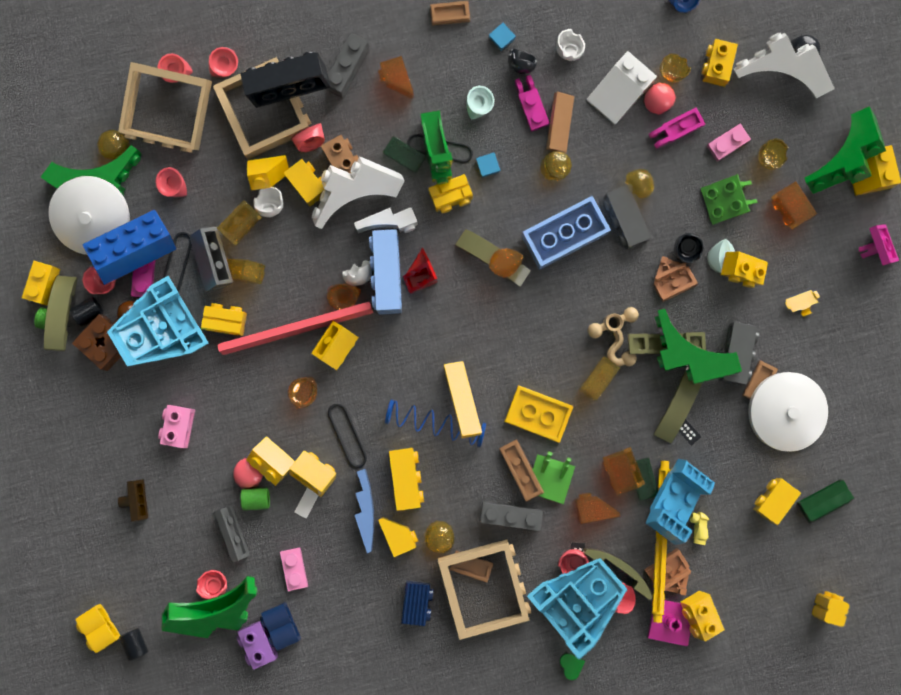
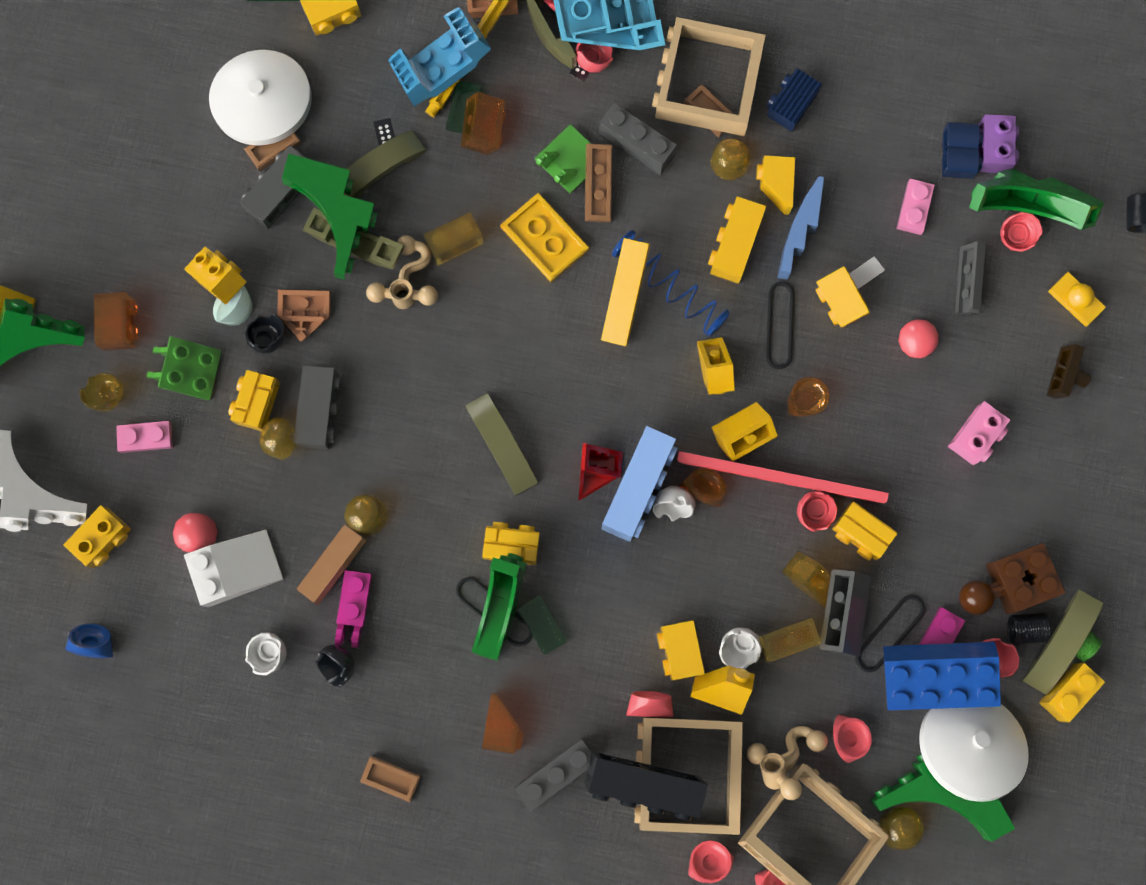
camera: 155 degrees left, 5 degrees down
(152, 558) = (1077, 299): none -> yellow tile
(157, 327) = (951, 557): medium azure wedge -> none
(225, 143) = (782, 764): none -> tan piece
(255, 499) = (924, 303): bright green piece -> none
(261, 317) = (816, 511): none -> coral hair
(270, 461) = (886, 335): yellow brick -> none
(339, 153) = (622, 657): medium nougat brick -> none
(342, 187) = (637, 614): white arch -> none
(376, 382) = (716, 366): none -> yellow slope
(402, 220) = (585, 540): white slope -> none
(479, 101) = (414, 641): light aqua piece -> none
(488, 165) = (446, 559): dark azure tile -> none
(502, 36) = (342, 712): dark azure tile -> none
(505, 262) = (490, 425): clear orange piece -> none
(565, 232) = (399, 424): light blue brick -> none
(593, 509) = (539, 100): clear orange slope -> none
(670, 201) = (254, 400): none -> yellow brick
(674, 68) = (155, 558): clear yellow hair -> none
(678, 127) = (192, 484): dark pink hinge -> none
(700, 527) = (433, 19): light yellow arm -> none
(803, 302) = (170, 209): yellow piece -> none
(881, 245) = (41, 221): dark pink tile -> none

